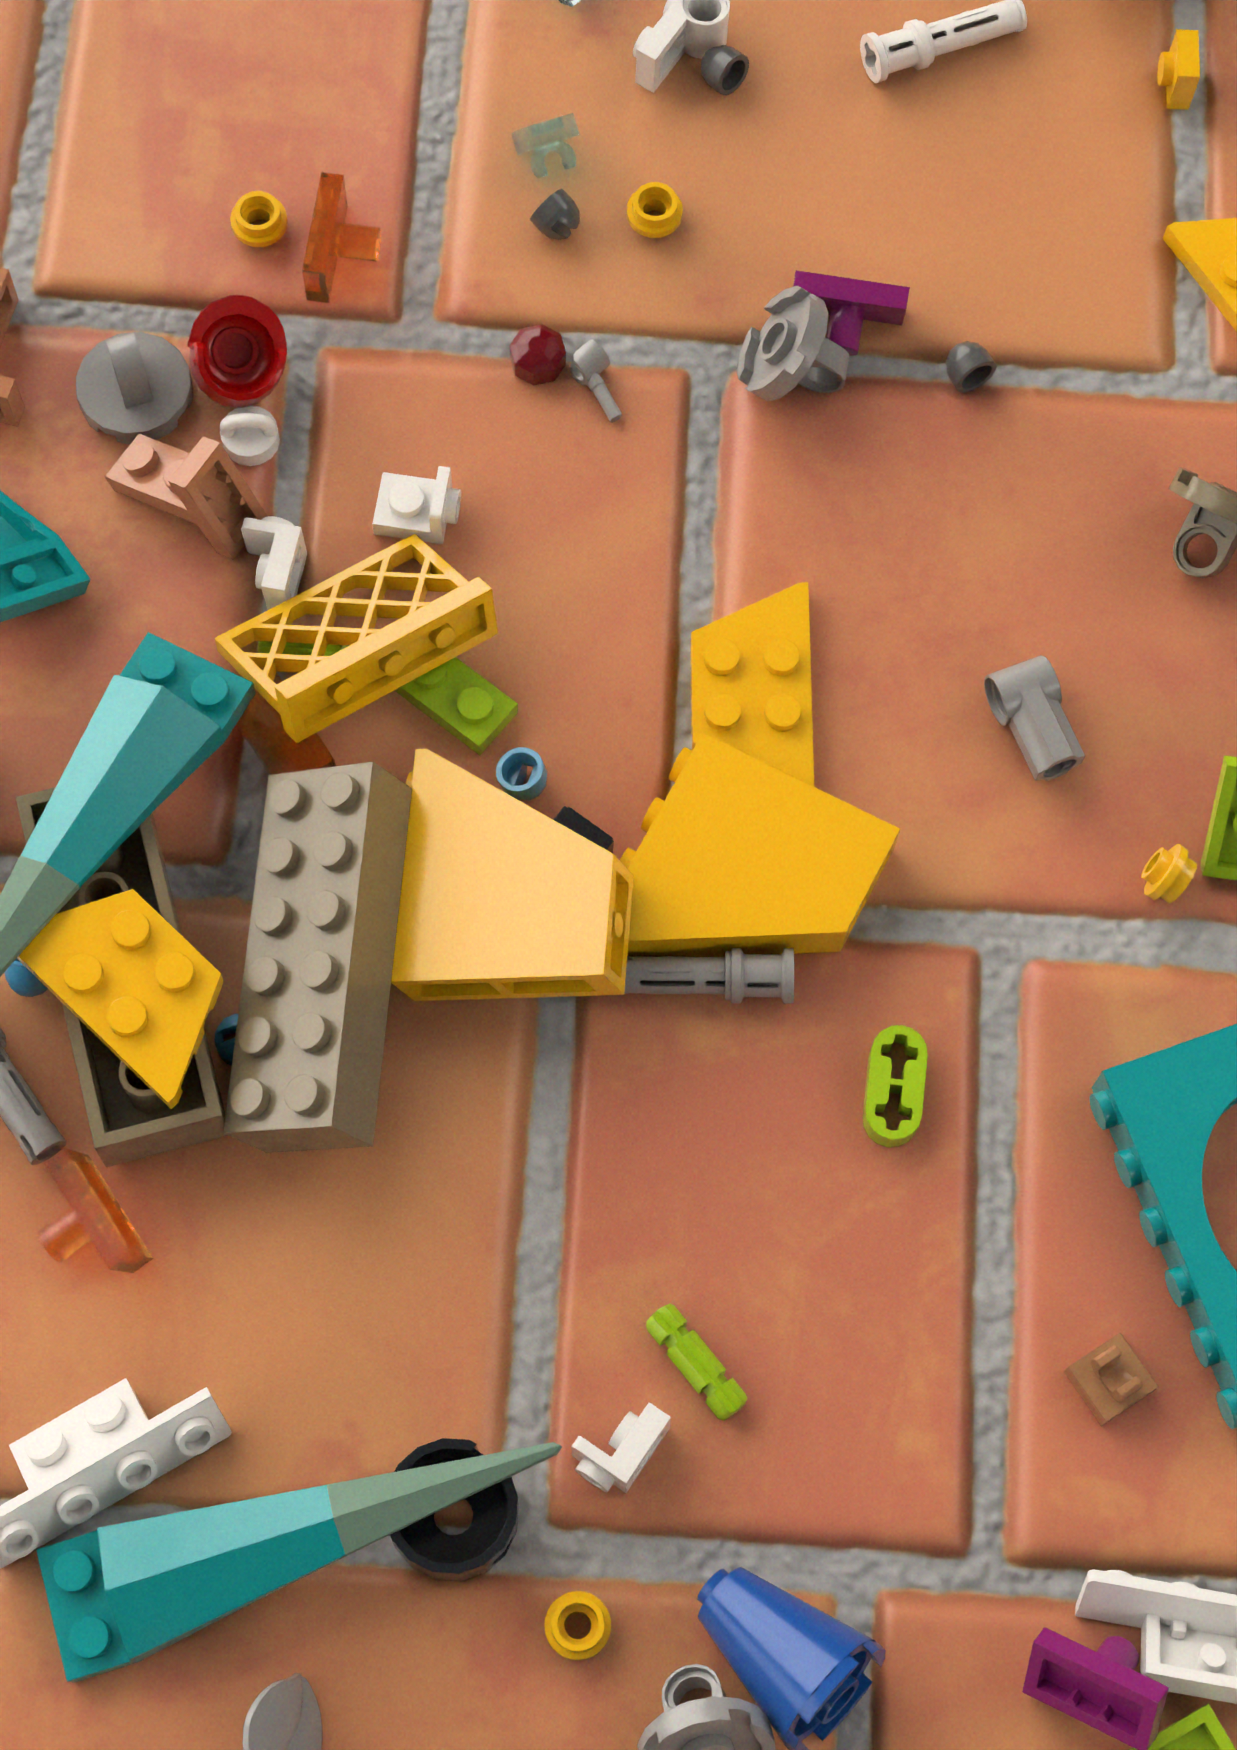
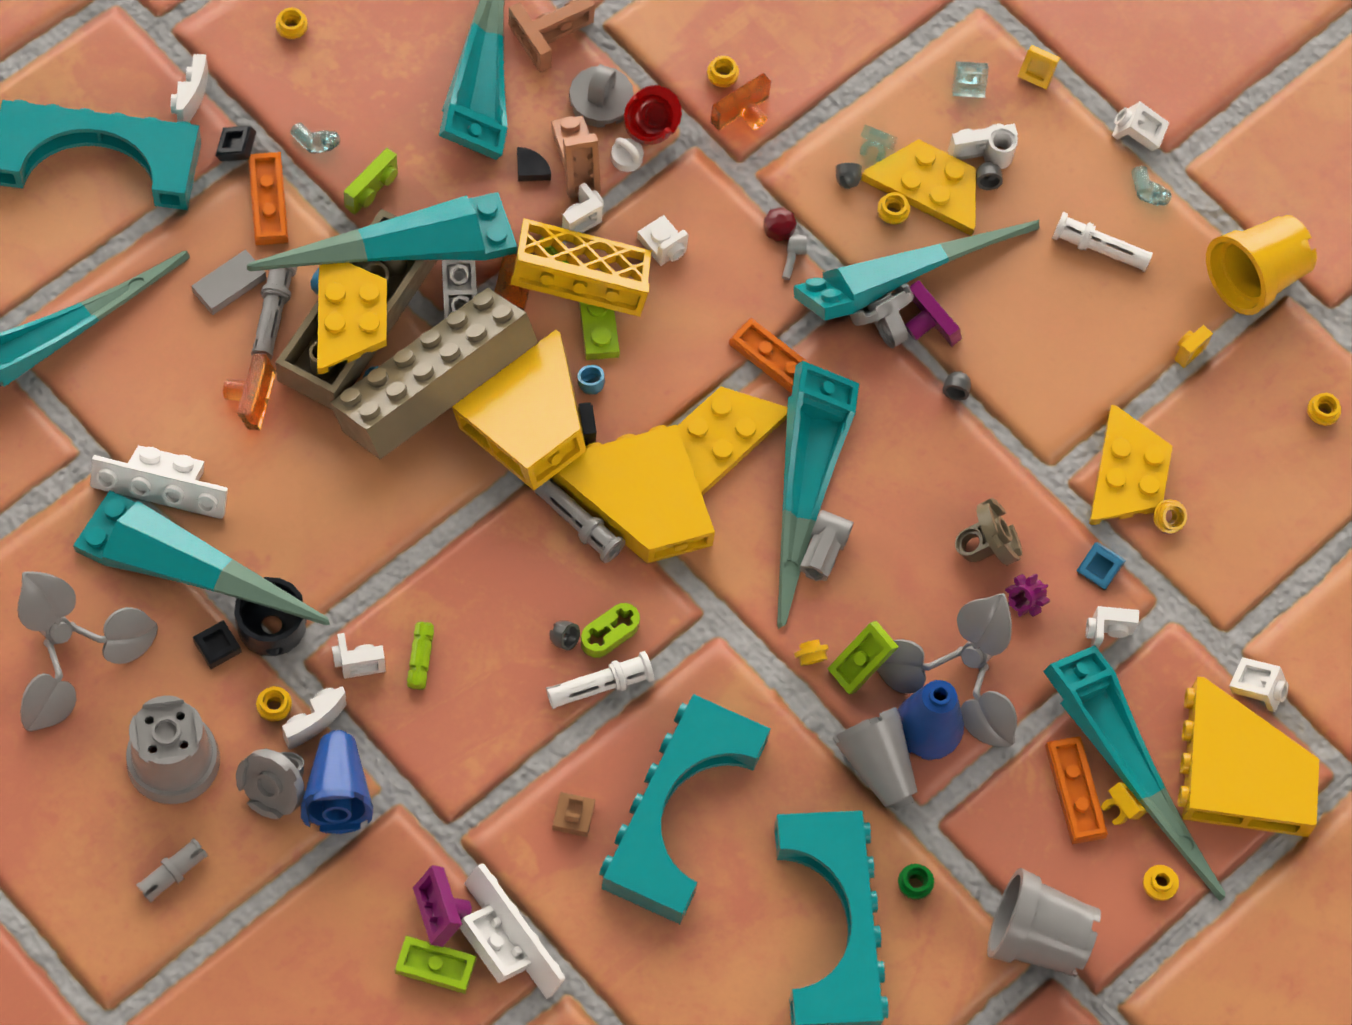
camera: 40 degrees right, 5 degrees down
(140, 559) = (532, 166): none -> black tile
(221, 815) = (458, 283): none -> white slope
(412, 1619) = (217, 644): none -> black tile
(656, 1571) = (324, 710): none -> white slope
(667, 134) = (930, 183): none -> yellow wing
(720, 533) = (767, 352): none -> orange tile
(729, 341) = (858, 285): none -> teal plate
(848, 1149) = (560, 629): none -> dark grey hinge
(869, 577) = (815, 433): none -> teal plate
(971, 1141) = (616, 676): none -> white pin

